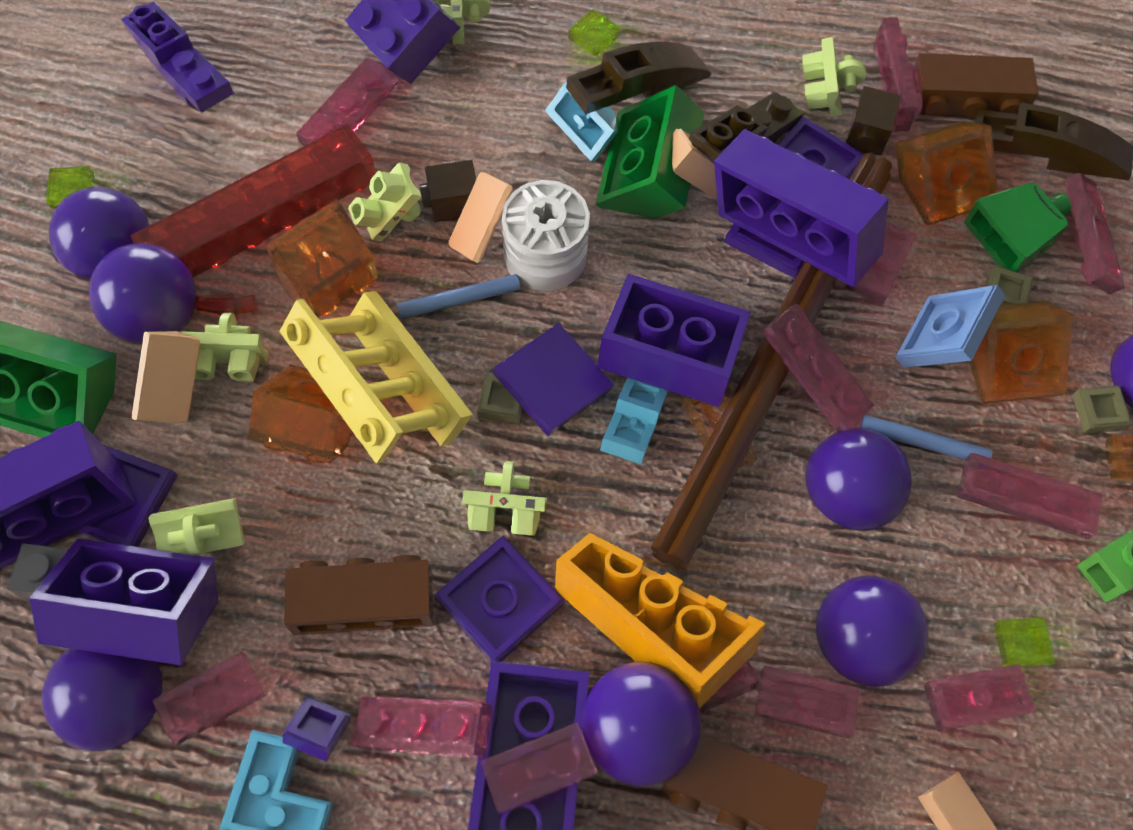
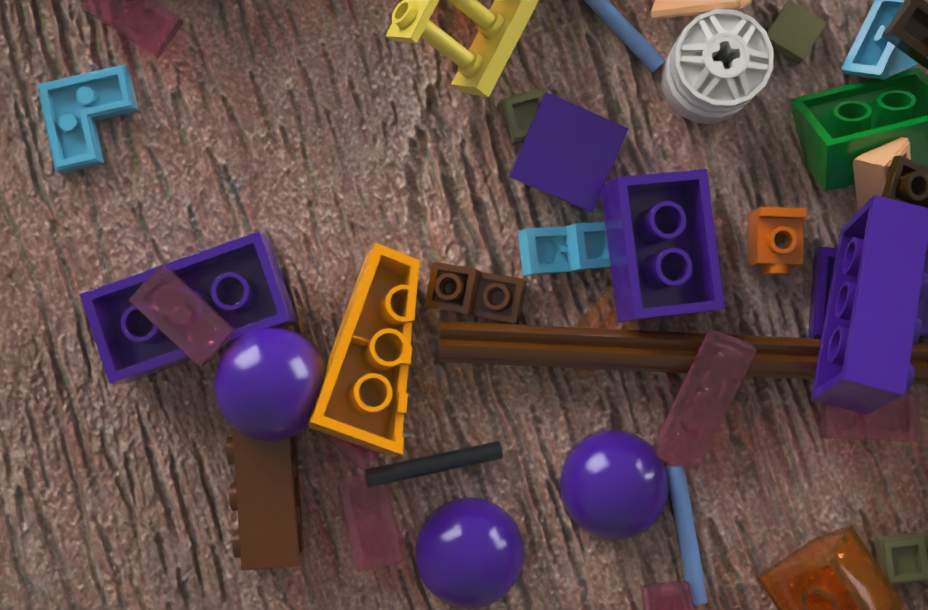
camera: 65 degrees right, 20 degrees up
(316, 728) = (150, 115): dark purple tile -> none
(358, 596) = (274, 88): reddish brown brick -> none
(423, 726) = (184, 202): clear pink plate -> none
(483, 504) = (428, 167): yellowish green hips -> none
(499, 600) = (335, 210): dark purple tile -> none
(543, 168) = (795, 31): none -> olive tile
(637, 510) = (475, 293): none -> reddish brown slope
(705, 260) = (762, 250): none -> orange brick
(778, 620) = (433, 464): none -> black bar
(950, 327) = (817, 515): medium blue tile -> none

